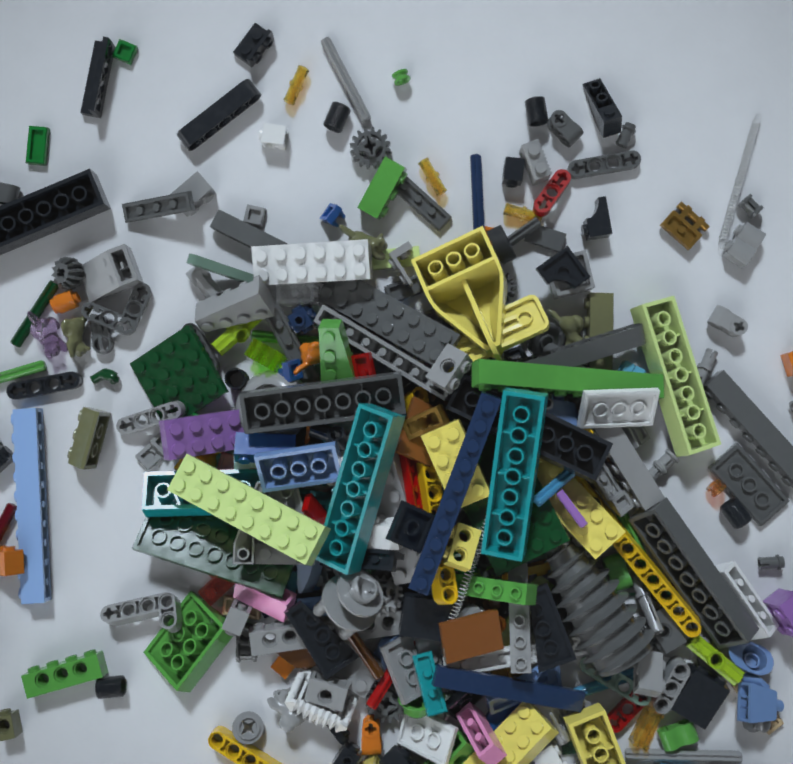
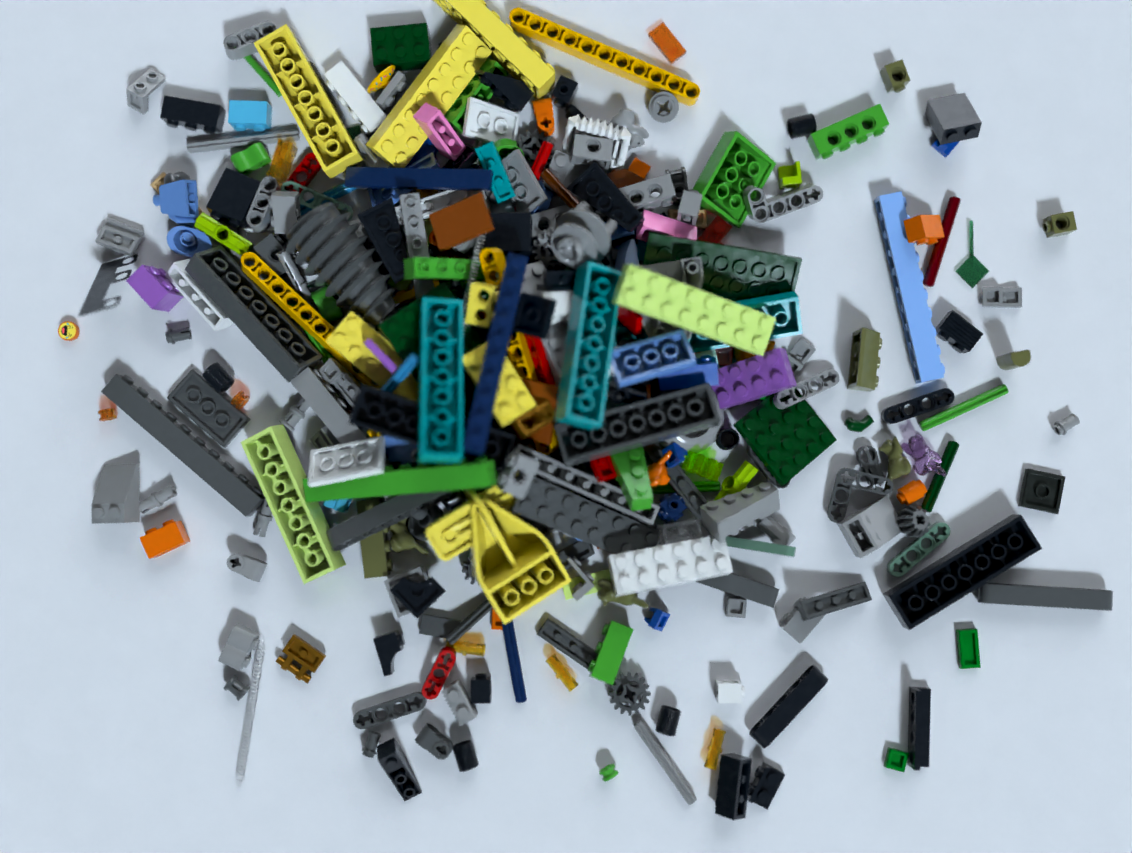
camera: 165 degrees right, 0 degrees up
(66, 242) = (919, 550): none -> sand green beam
(131, 636) = (789, 176): none -> lime panel
(284, 47) = (733, 786): none -> black brick
(501, 244) = (482, 610): black tyre -> none

